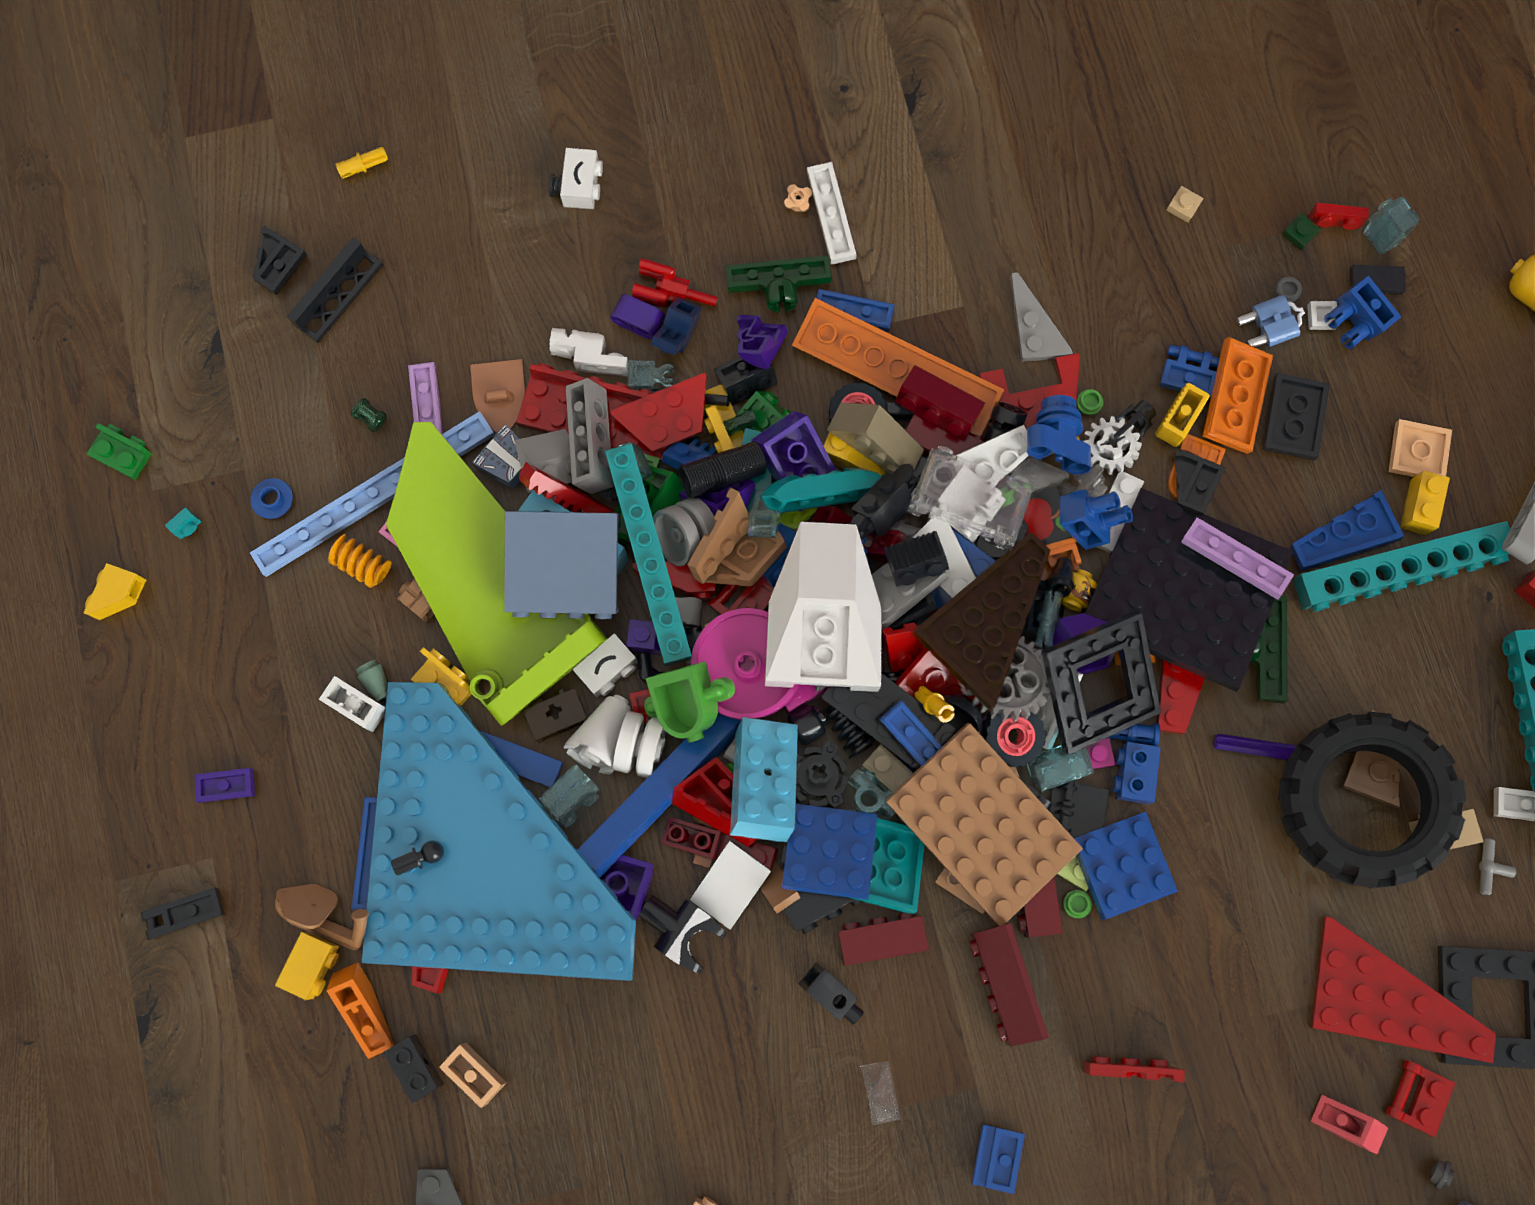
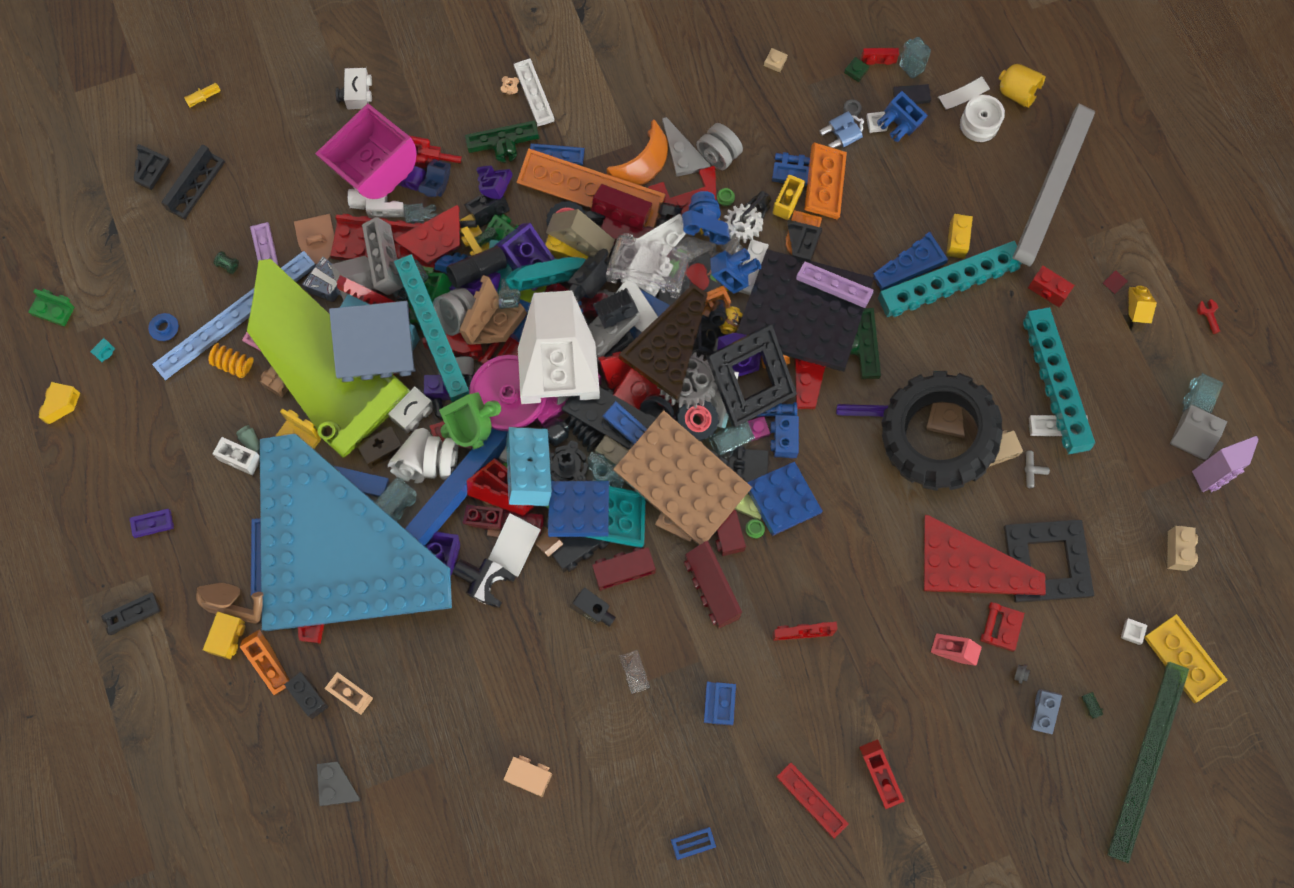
camera: 10 degrees left, 5 degrees down
(430, 852) = (302, 546): black axle -> none
(588, 282) = (370, 153): none -> dark pink container
(934, 704) = (639, 402): yellow axle -> none
(983, 339) = (647, 163): none -> orange windscreen
(1048, 619) = (712, 338): clear light blue pin -> none
(1091, 327) = (719, 146): none -> light grey wheel
(1296, 416) = (866, 190): black plate -> none
(1419, 448) = (951, 201): light nougat plate -> none
(1455, 285) = (964, 93): none -> white sticker
(1479, 328) = (982, 118): none -> white wheel

